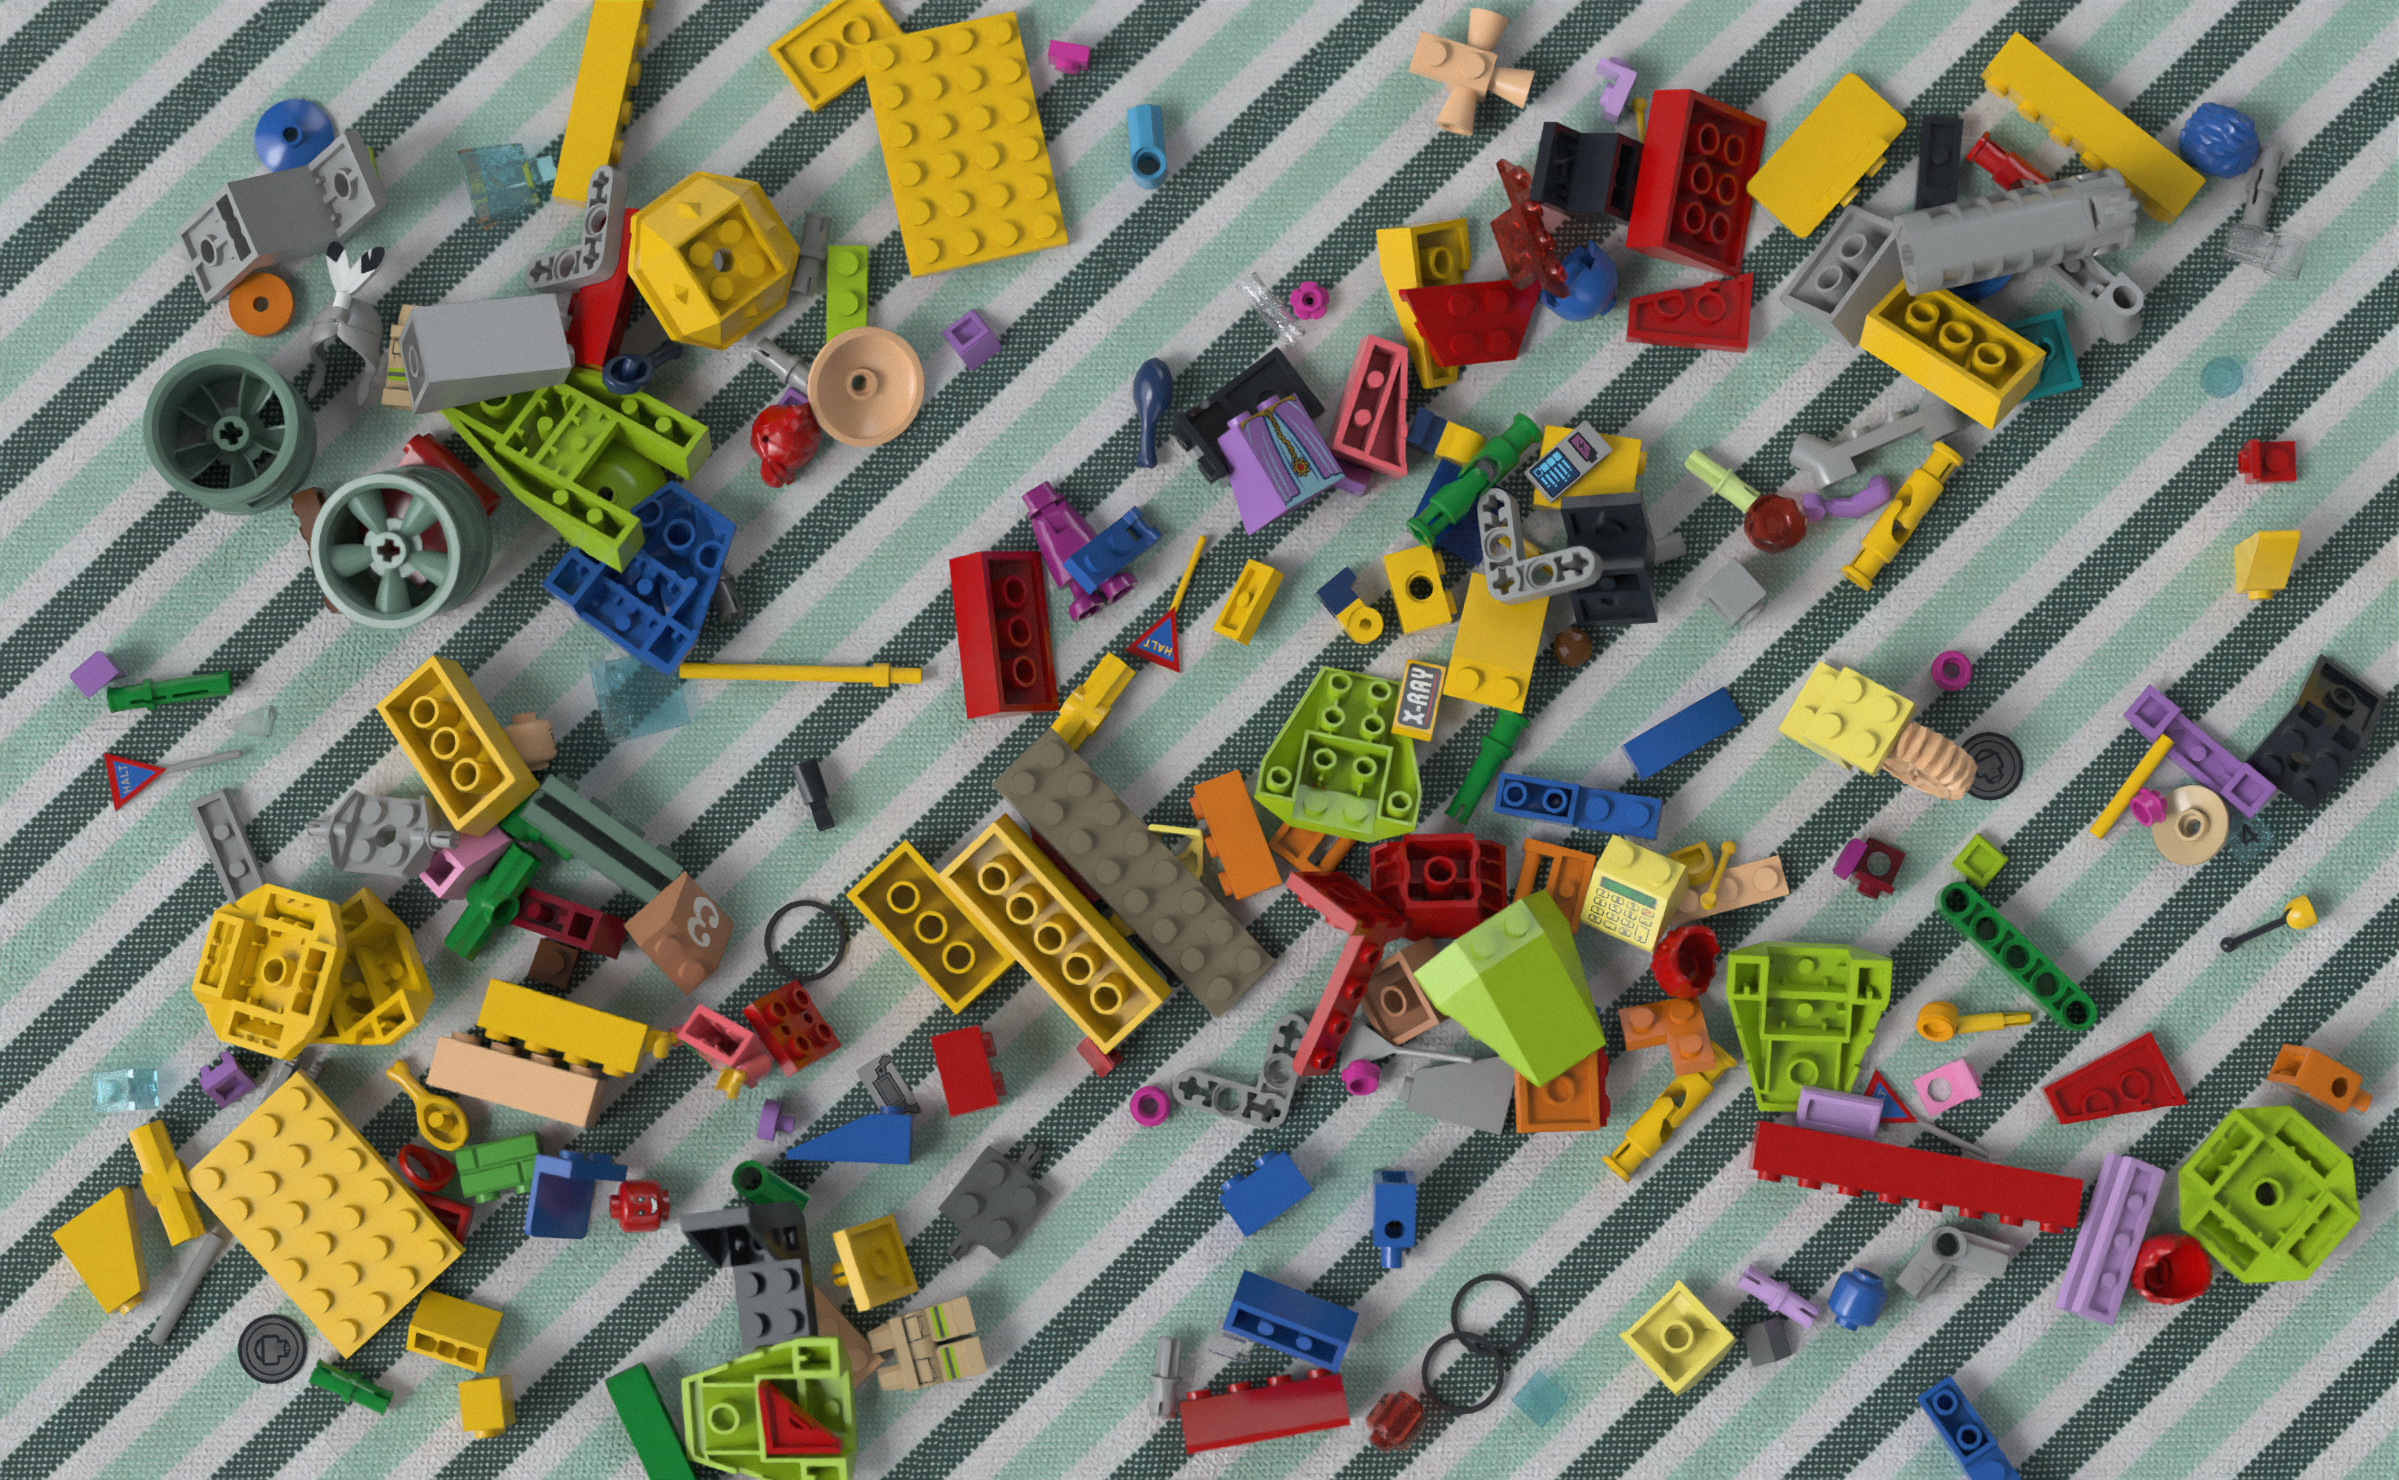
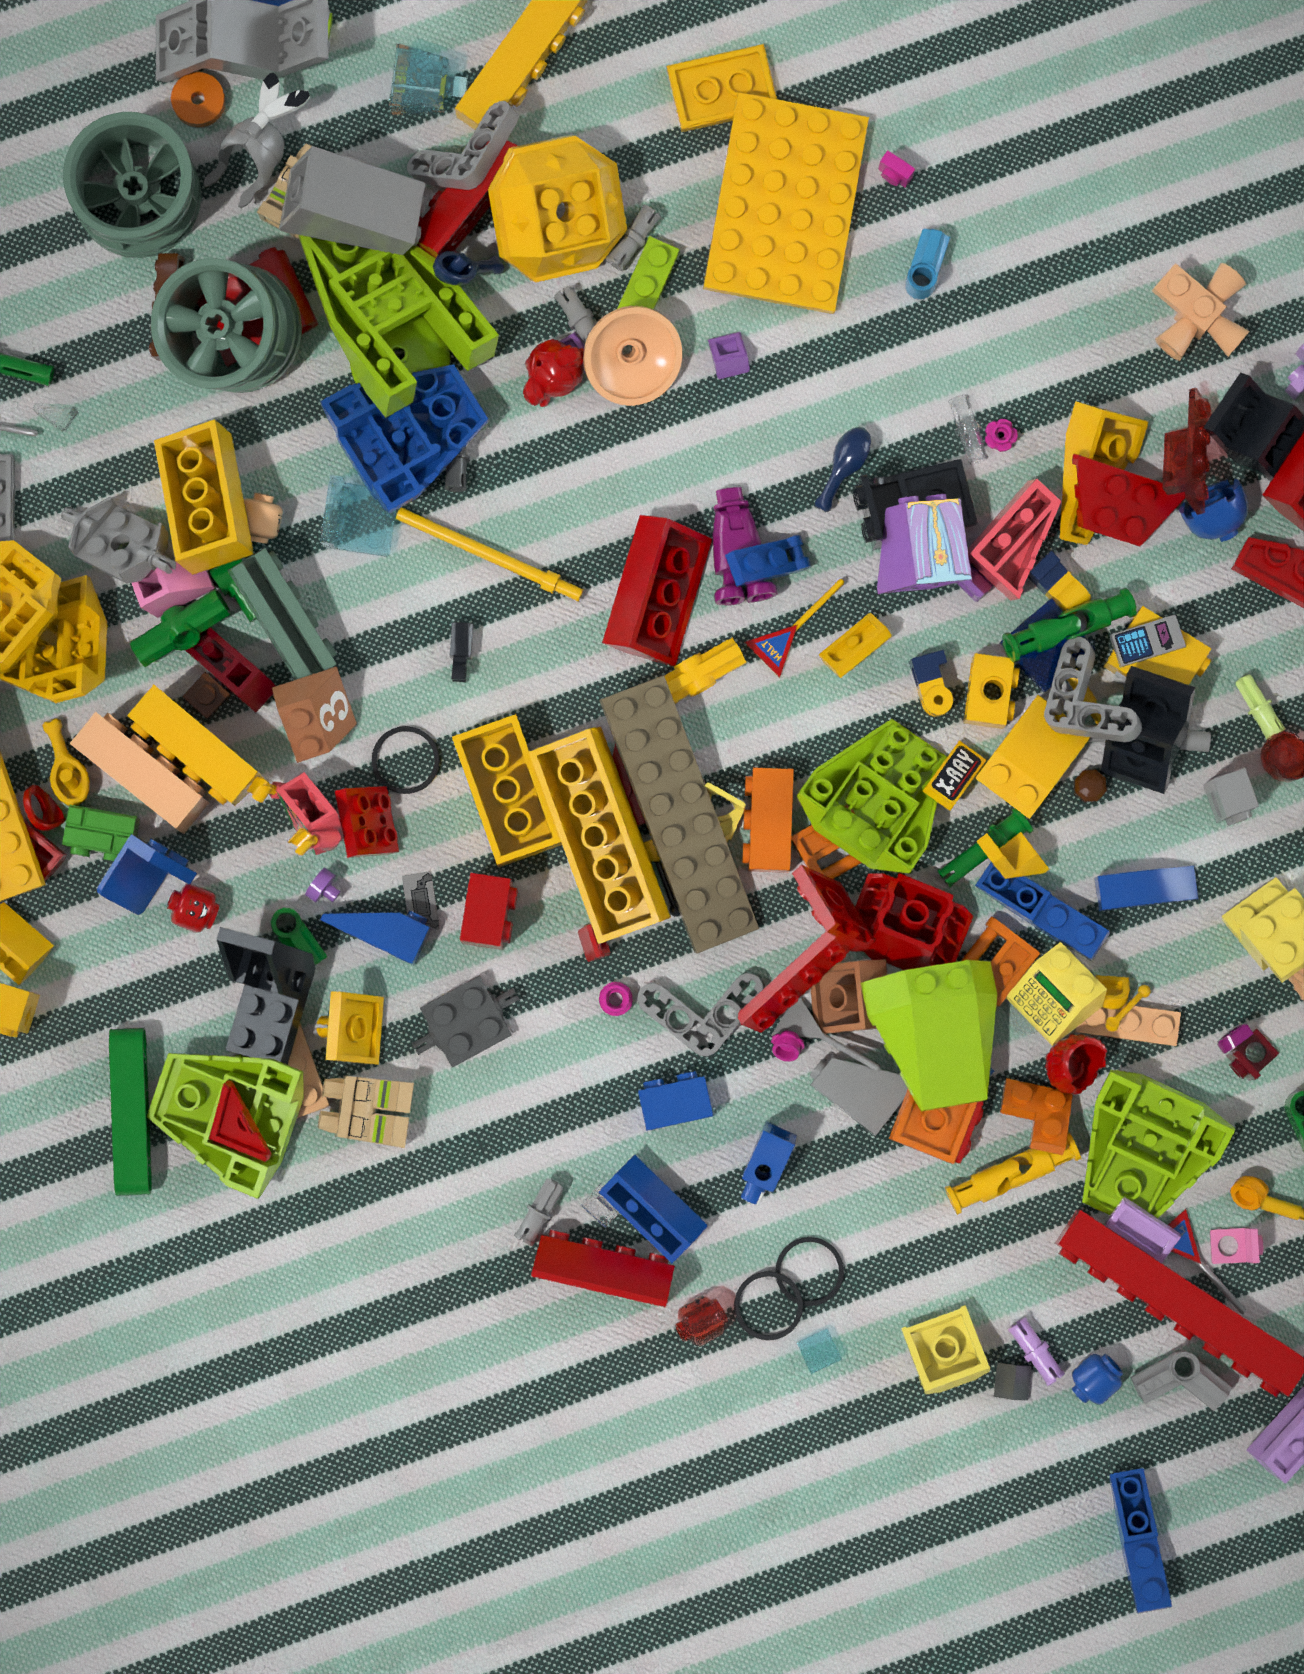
camera: 15 degrees right, 0 degrees up
(1523, 764) = (1014, 858): none -> yellow slope

